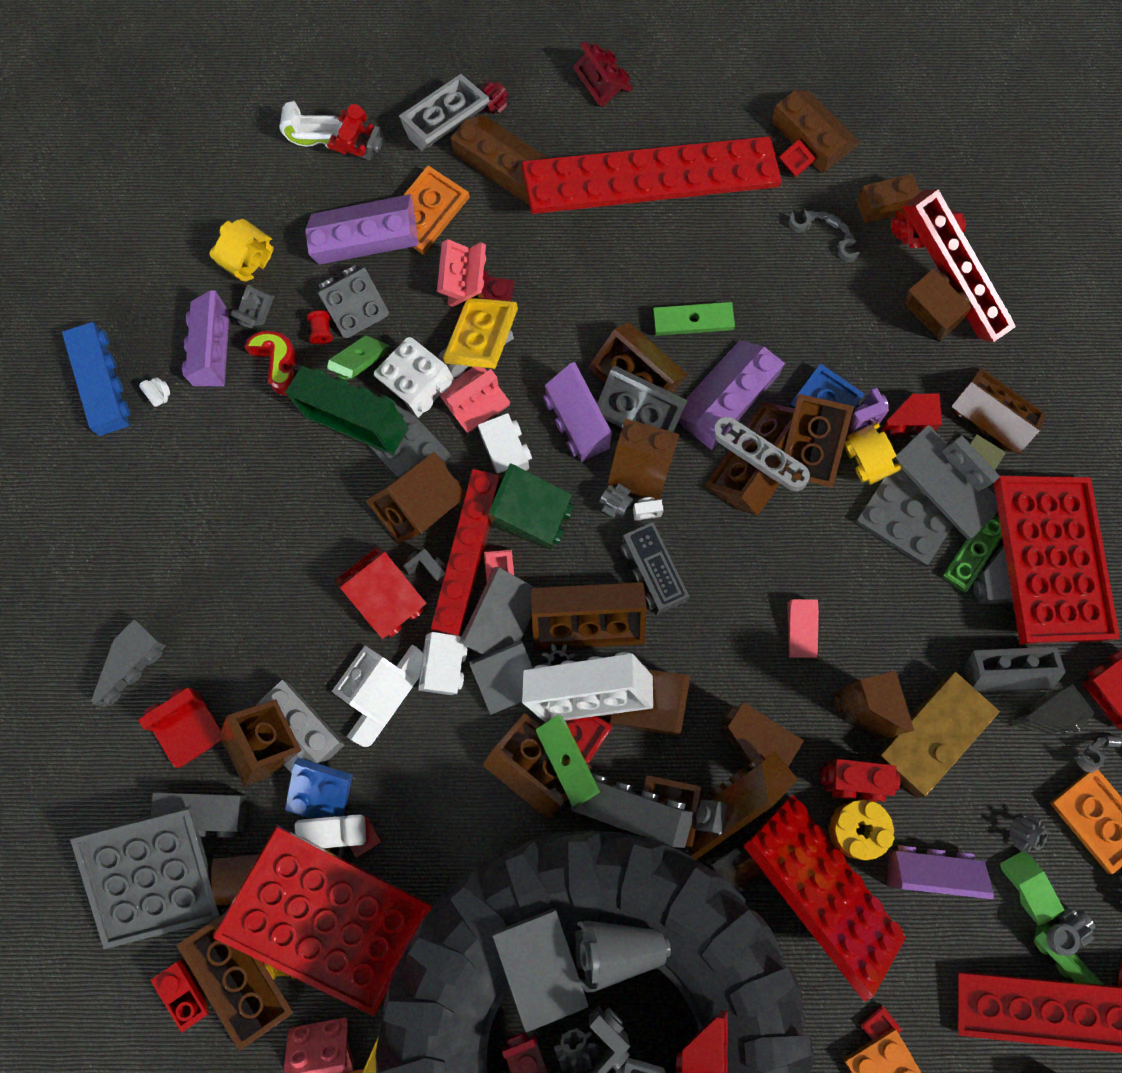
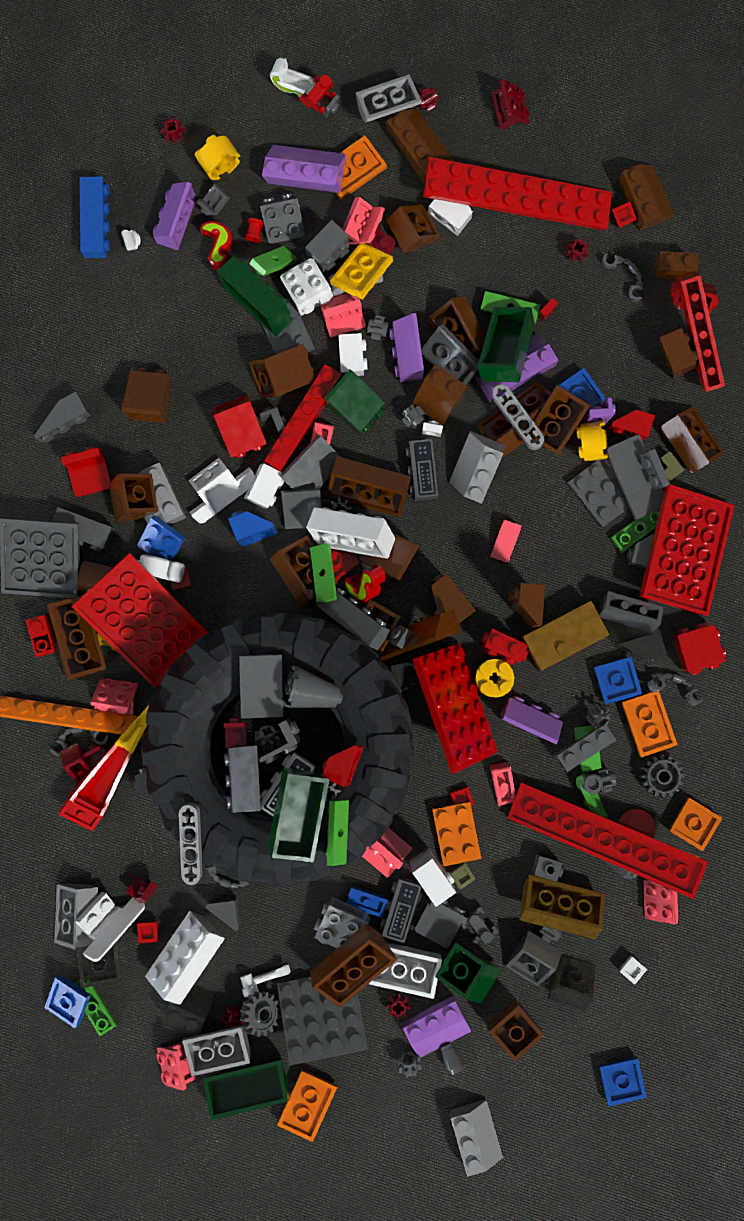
camera: 15 degrees right, 10 degrees up
(172, 236) = (172, 130): none -> dark red gear
(238, 593) = (147, 396): none -> reddish brown slope
(427, 315) = (328, 247): none -> dark grey brick
(442, 729) = (250, 528): none -> blue slope
(527, 399) = (377, 327): none -> dark grey gear
(529, 259) = (413, 227): none -> reddish brown slope
(573, 227) = (451, 215): none -> white brick
(636, 757) = (366, 586): none -> red animal
(709, 365) = (506, 344): none -> dark green piece
(729, 539) = (476, 466): none -> light grey slope
(744, 305) = (547, 309): none -> red tile
(754, 219) = (579, 245): none -> dark red gear
(931, 982) = (503, 783): none -> coral slope
(1032, 887) = (586, 747): none -> dark grey plate
(1033, 773) = (617, 680): none -> blue plate

